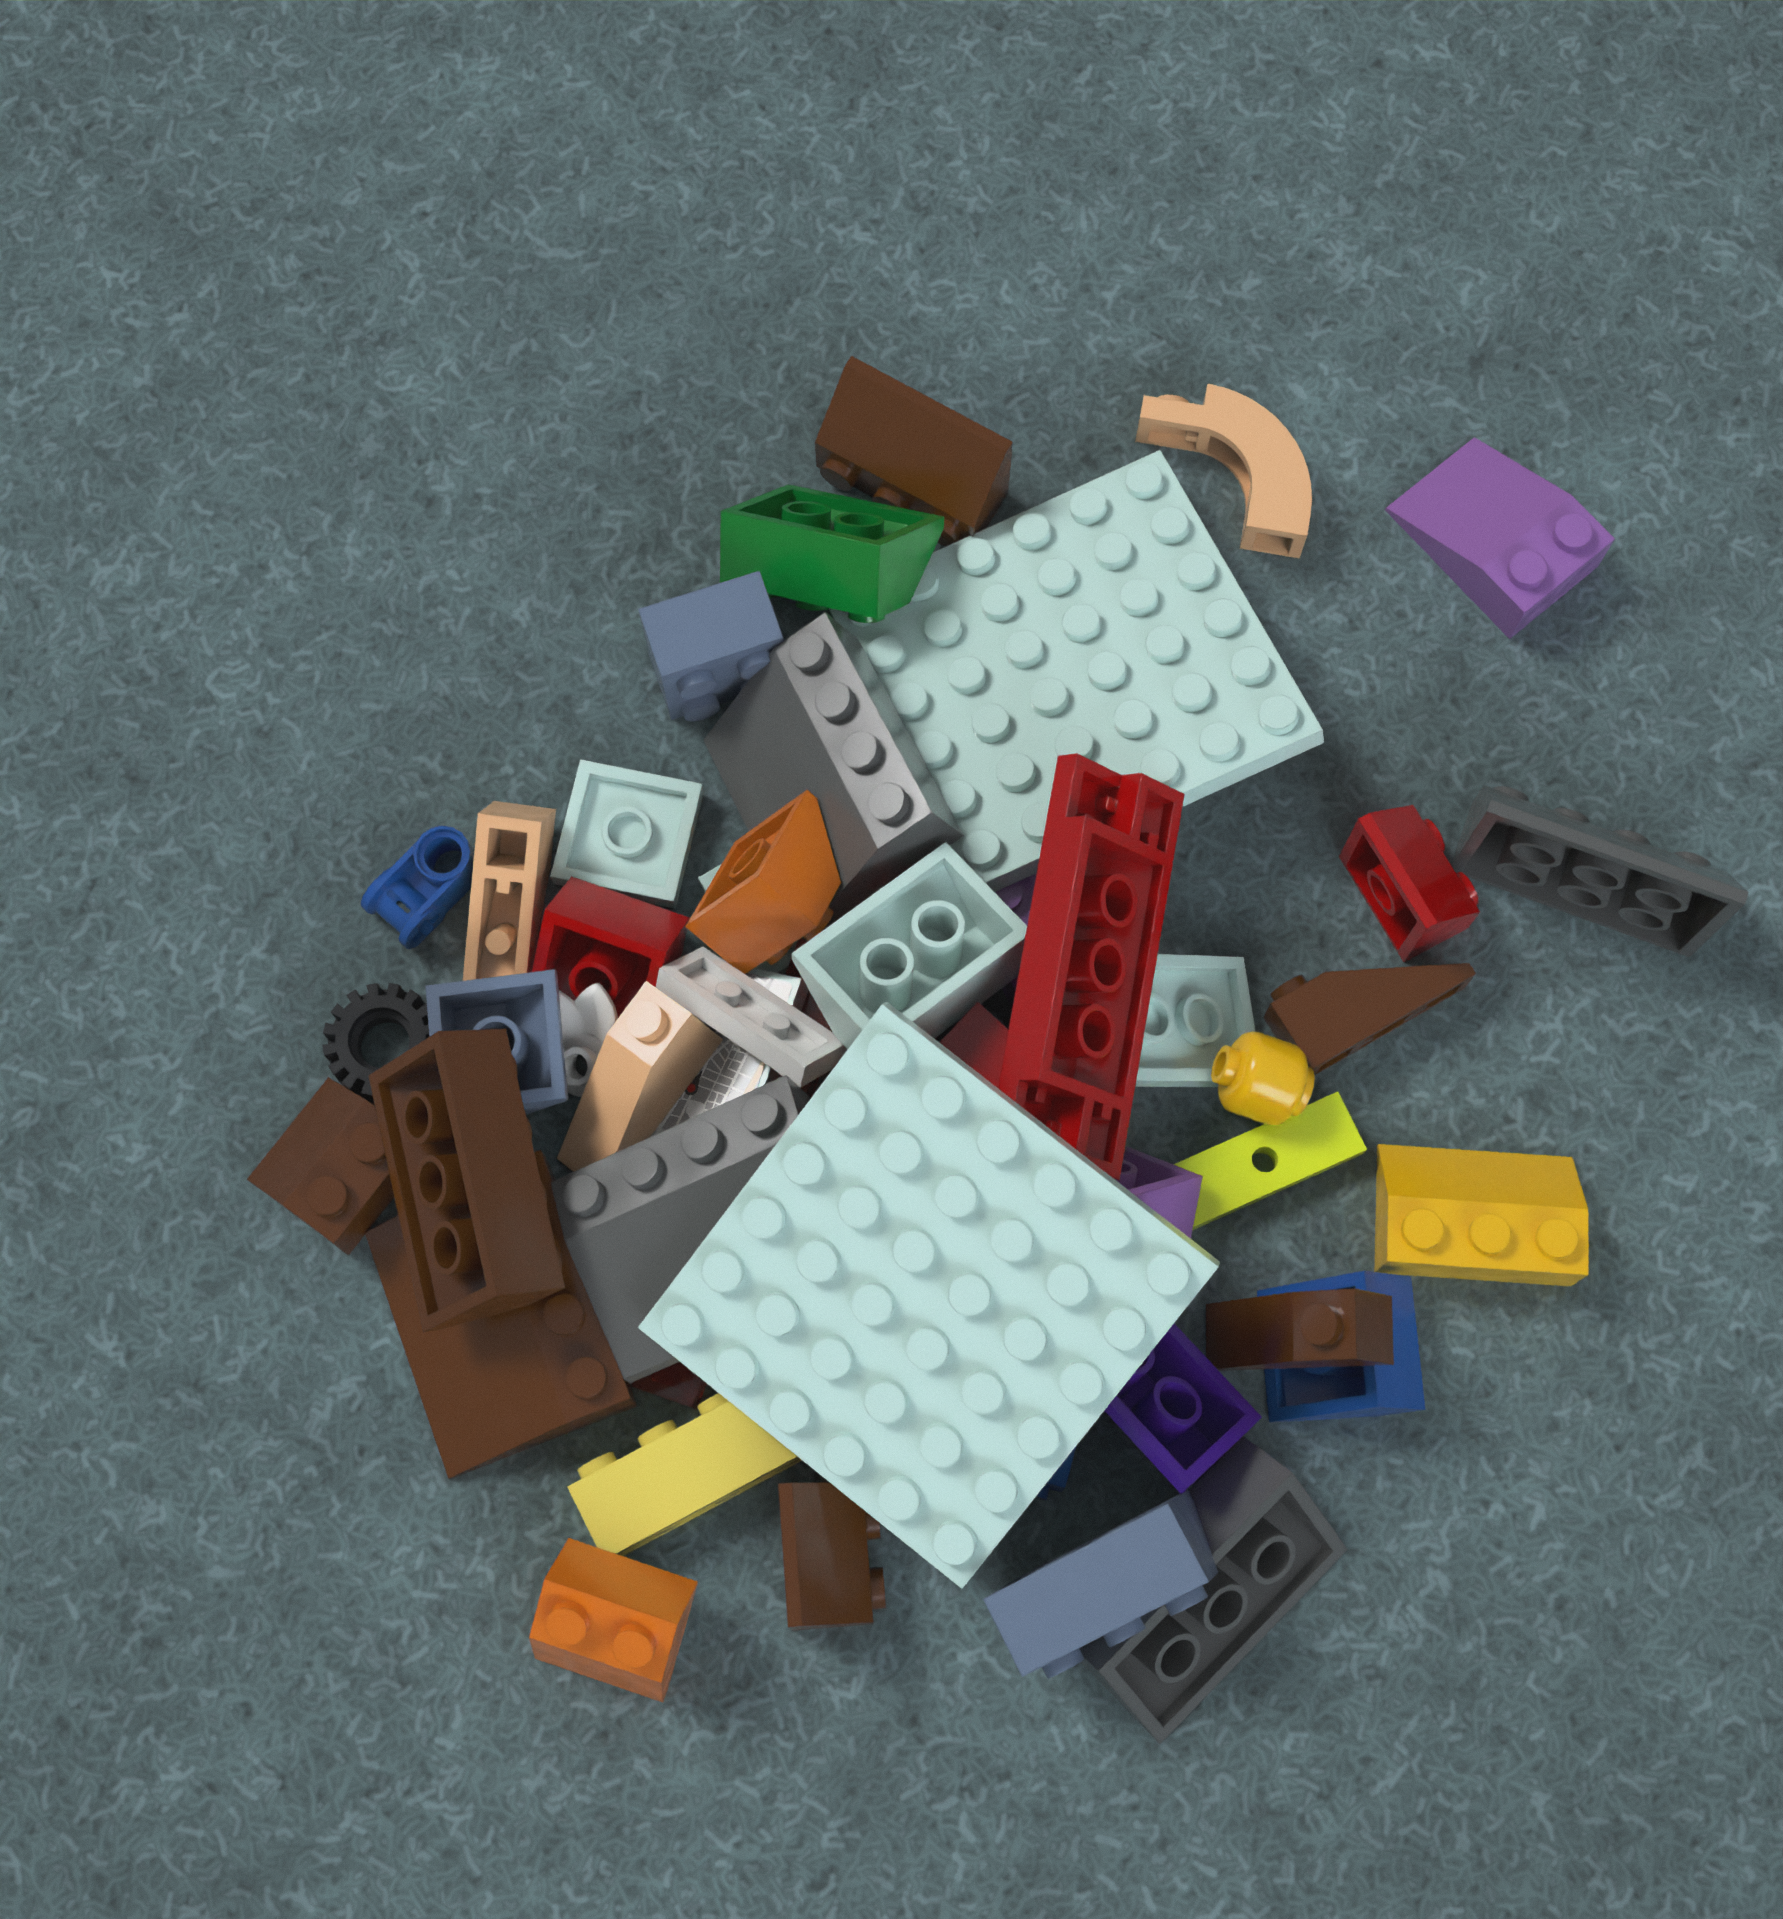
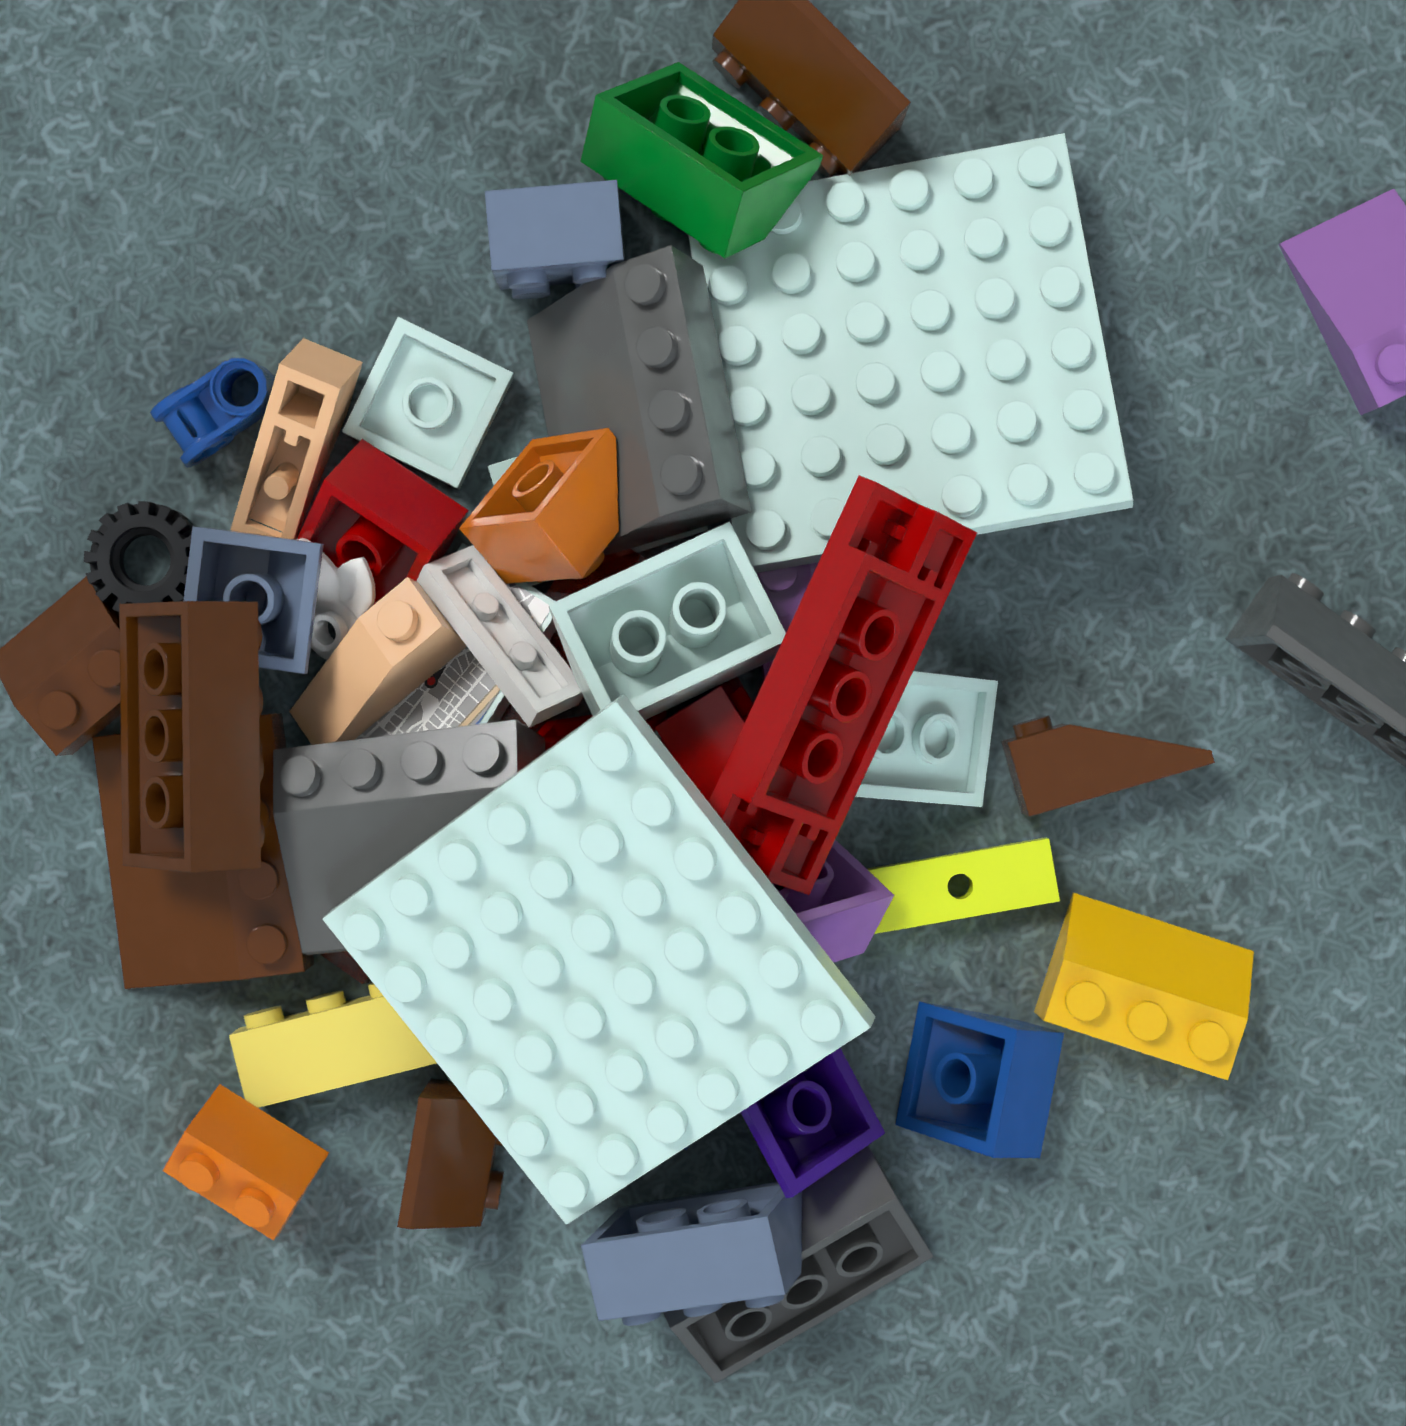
camera: 15 degrees right, 15 degrees up
(1253, 449) = (1166, 155): light nougat arch -> none
(1263, 1078) = (979, 815): yellow head -> none
(1301, 1330) = (944, 1069): reddish brown slope -> none
(1408, 879) = (1183, 650): red slope -> none

